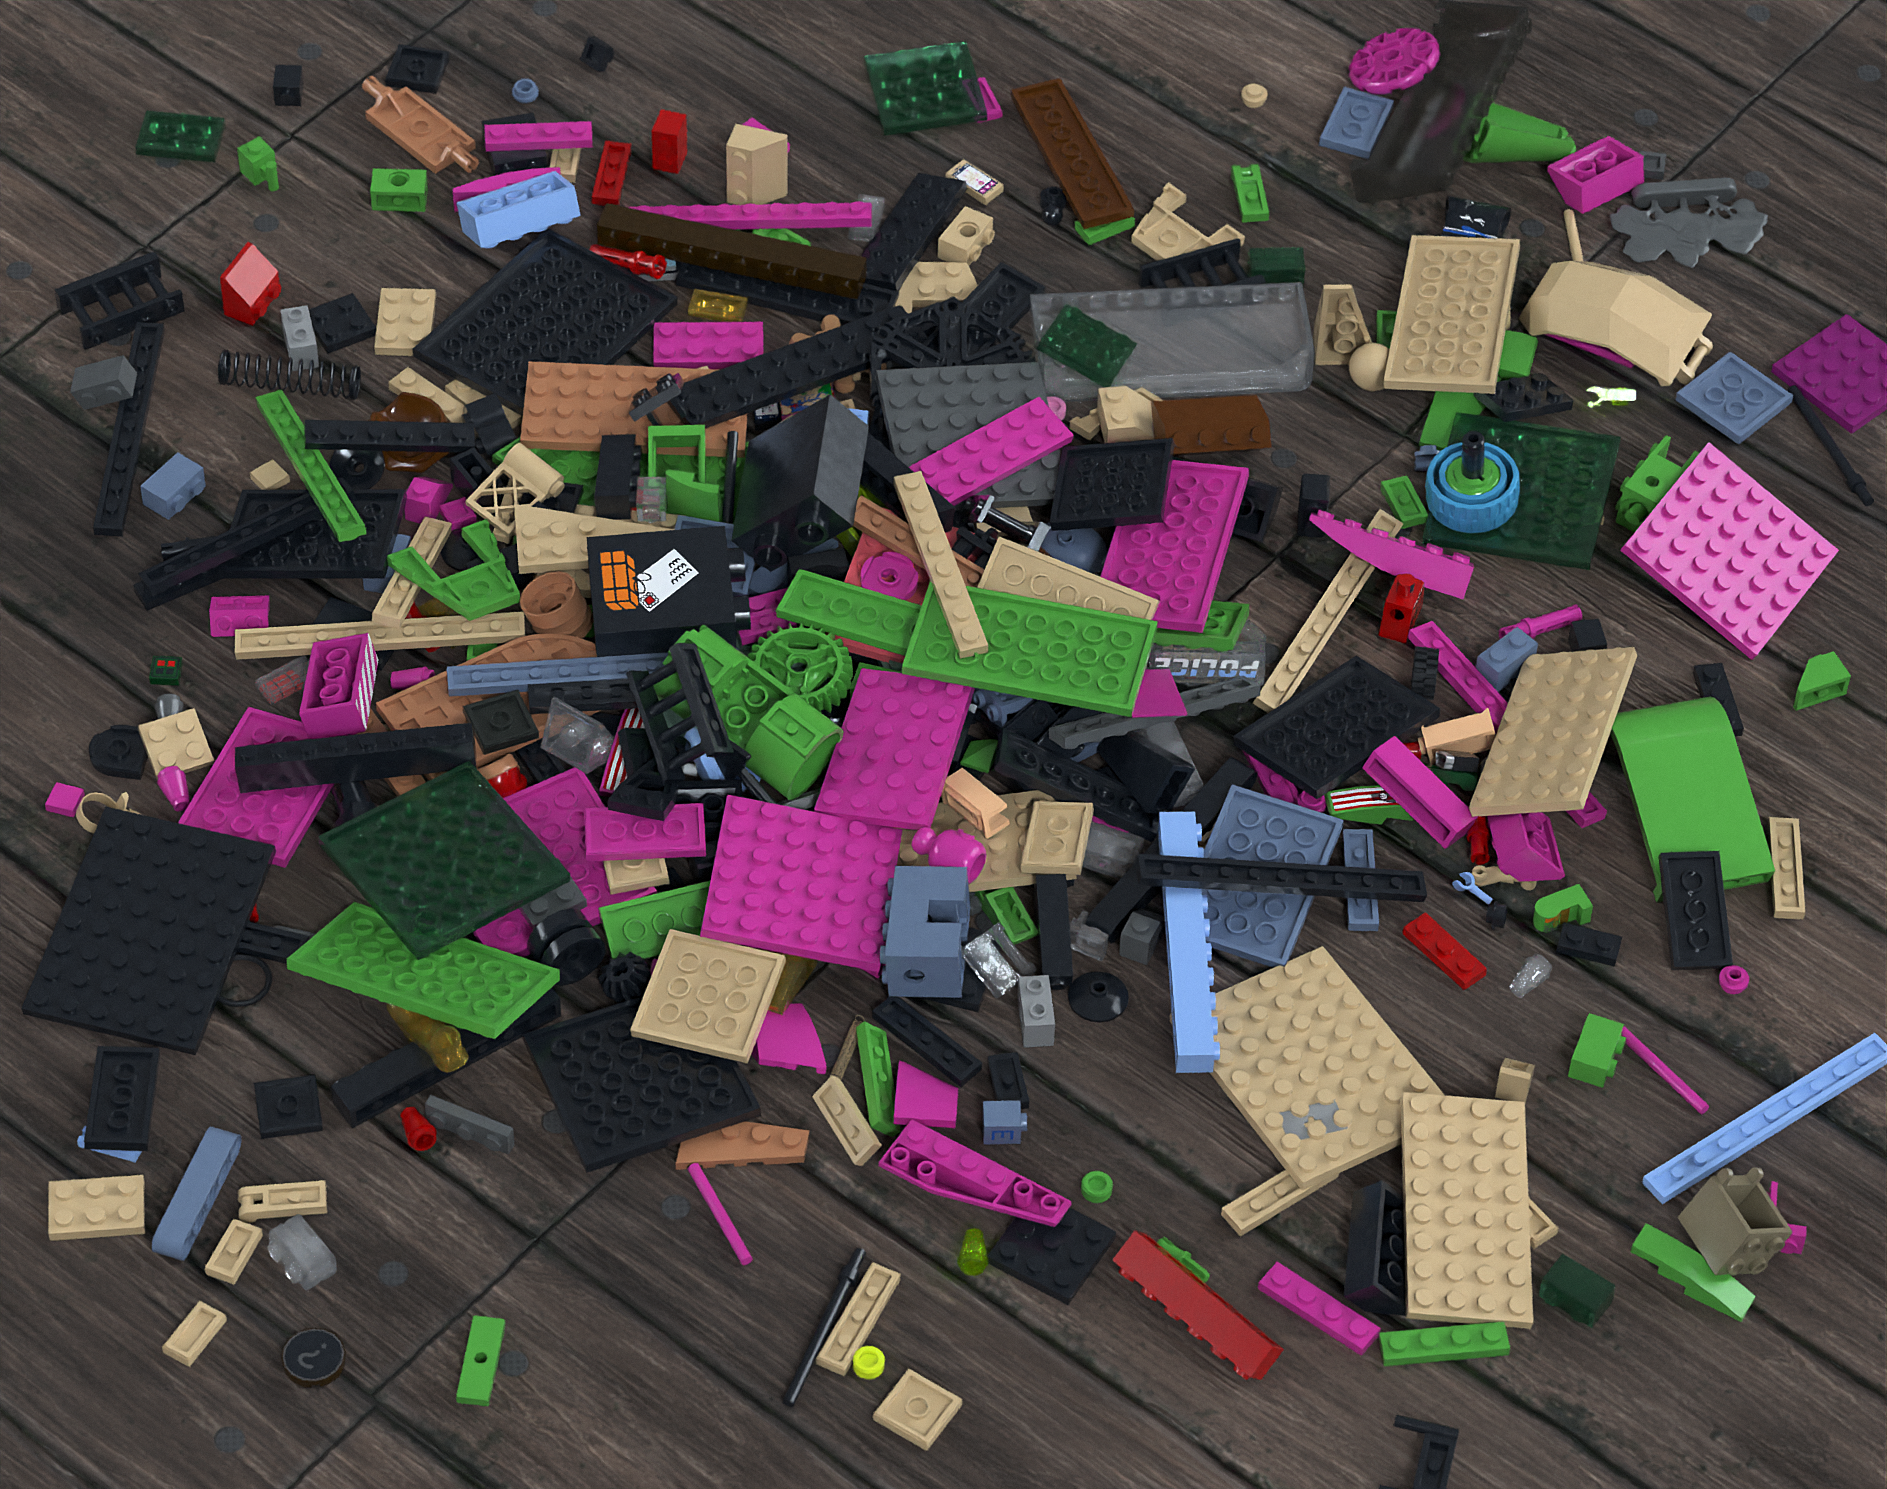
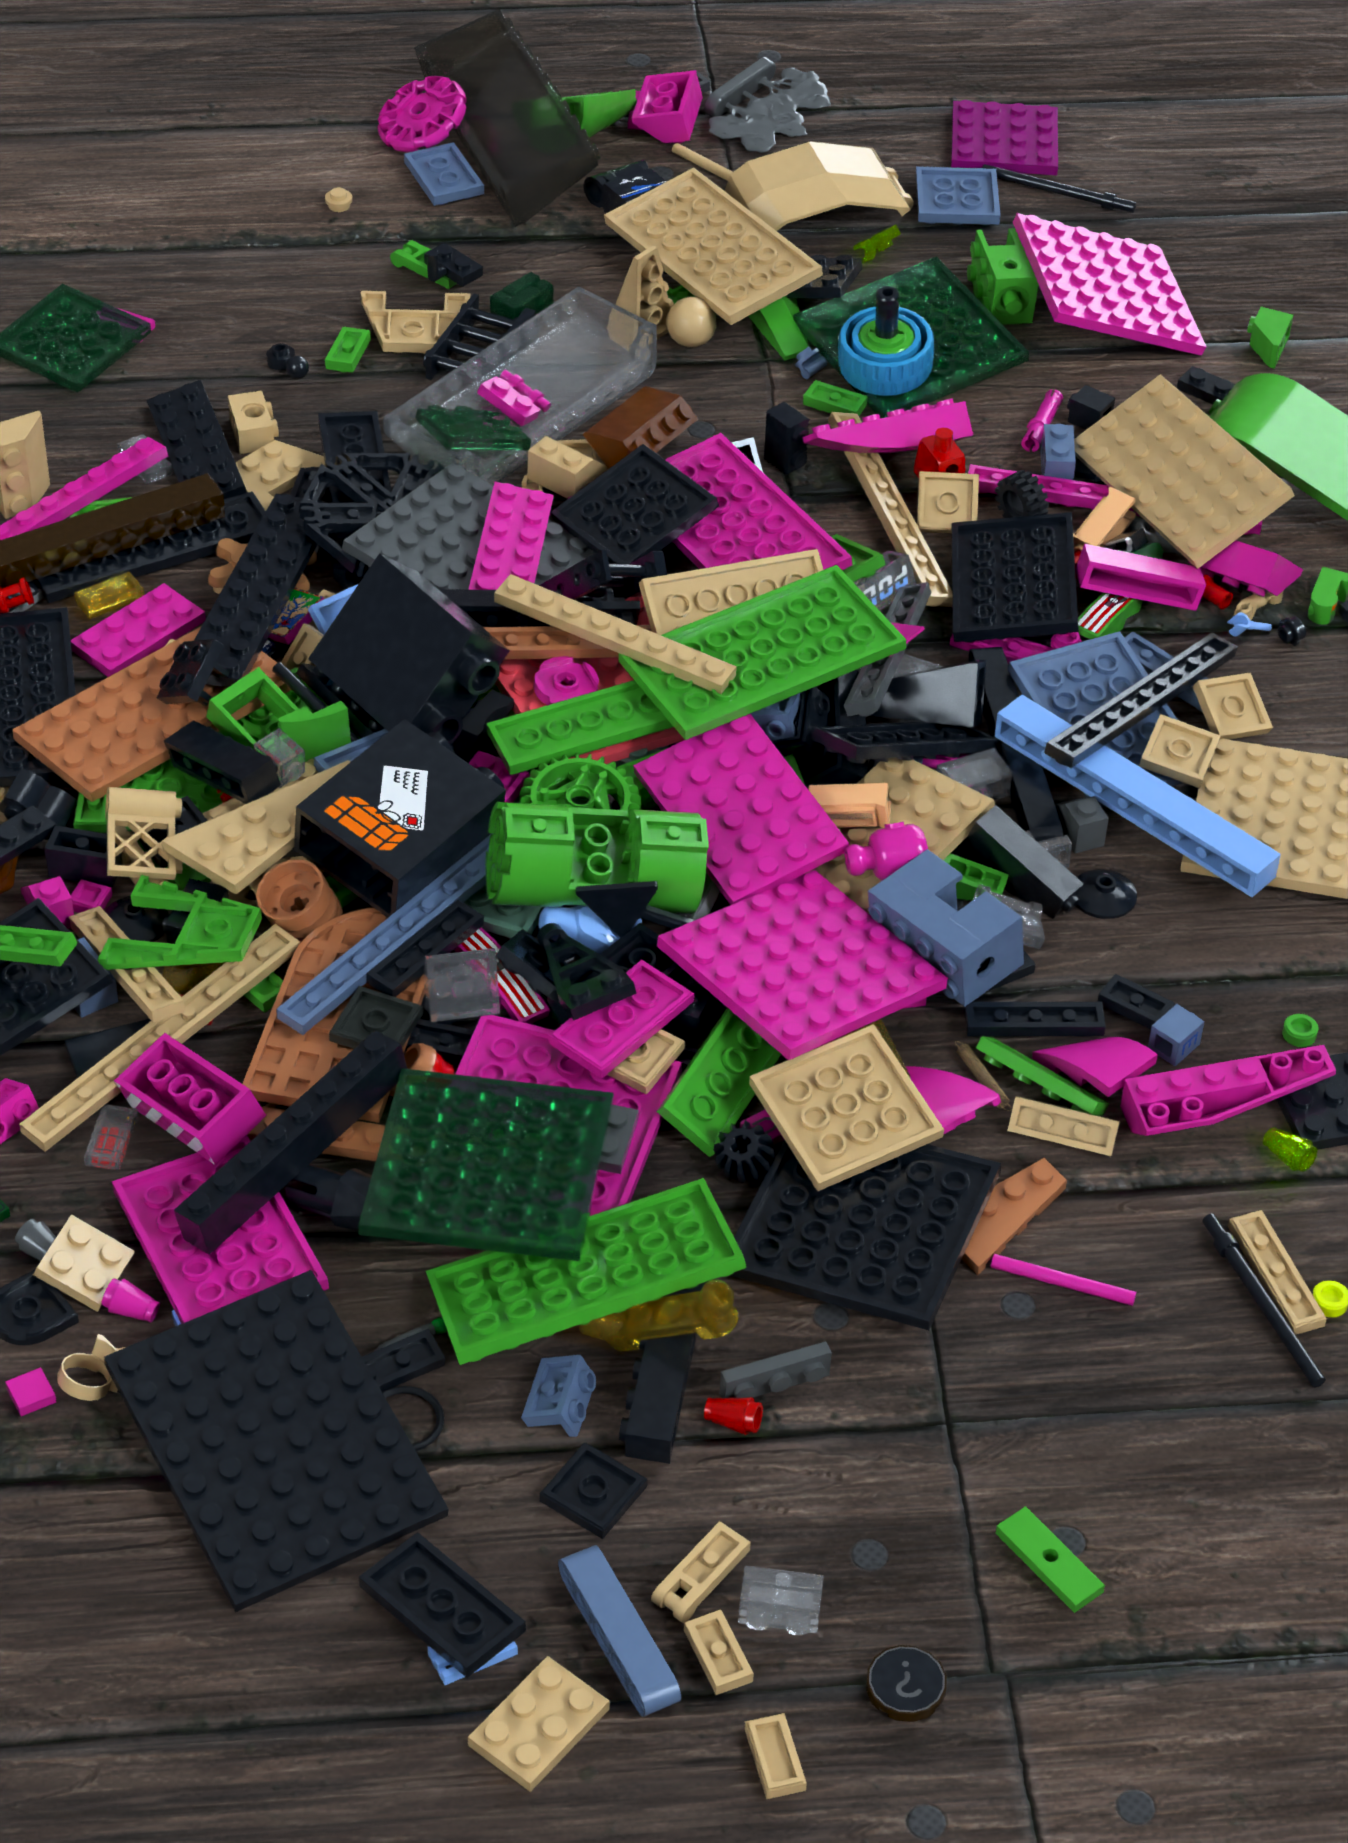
camera: 45 degrees left, 5 degrees down
(337, 1037) = (560, 1393): none -> sand blue bracket
(407, 678) = (234, 1052): dark pink cone -> none
(568, 944) = (669, 1160): black wheel -> none
(703, 709) = (594, 871): black fence -> none
(978, 183) = (214, 380): tile -> none
(1036, 1011) = (1086, 933): light grey brick -> none
(1057, 837) = (950, 785): tan tile -> none
(1072, 153) = (258, 313): reddish brown plate -> none
(1151, 344) = (514, 397): none -> dark pink plate
(1256, 203) = (451, 263): none -> black plate
(1269, 936) = (1179, 751): none -> tan plate
(1361, 935) = (1232, 706): none -> tan plate
(1370, 635) = (946, 500): none -> tan tile
(1444, 951) = (1294, 681): red plate -> none
(1595, 349) = (822, 221): dark pink bar -> none

